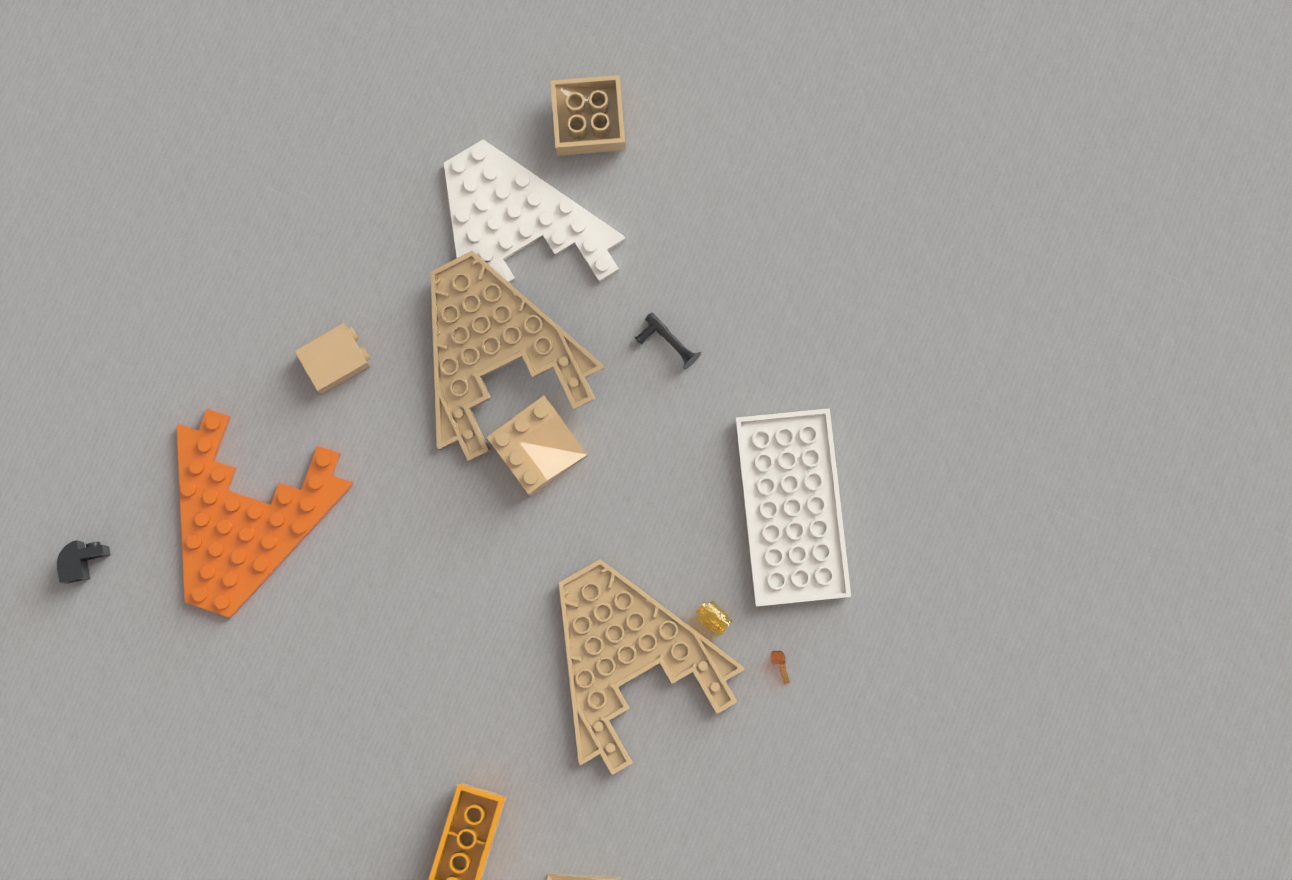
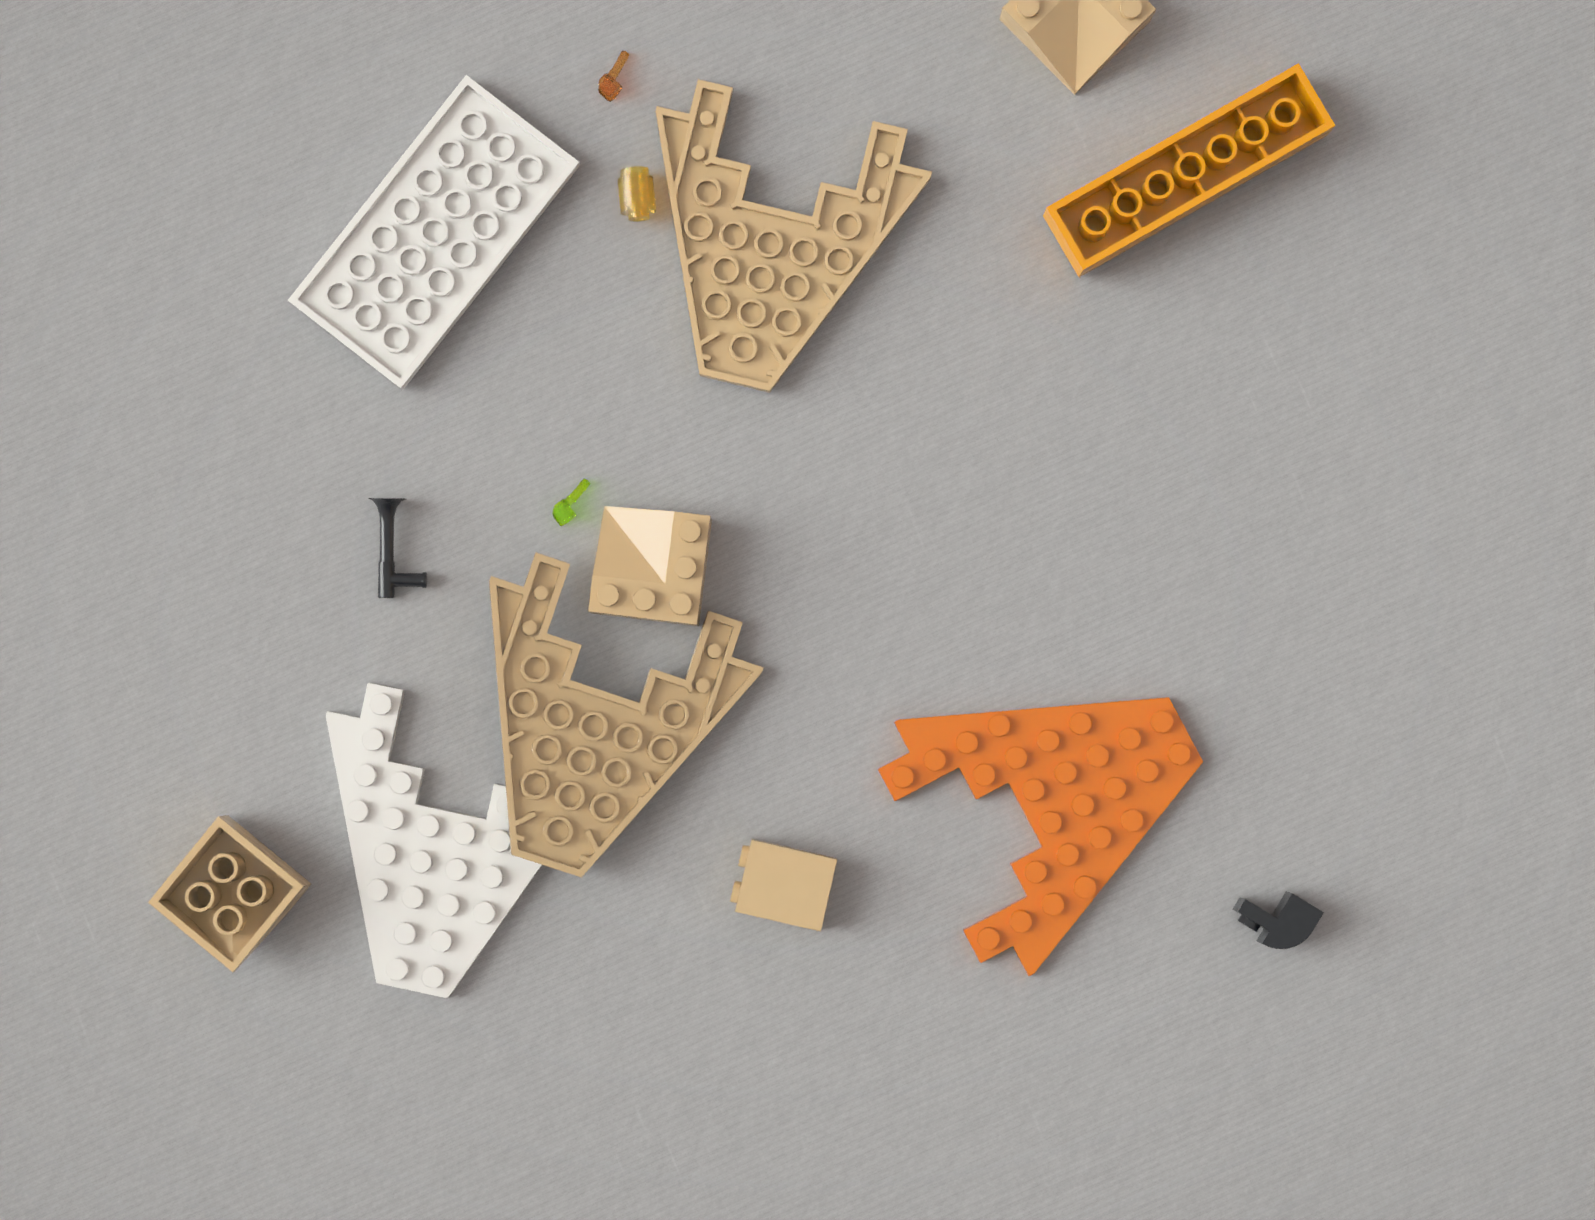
camera: 130 degrees left, 5 degrees up
(604, 433) = (562, 510): none -> clear neon green hand

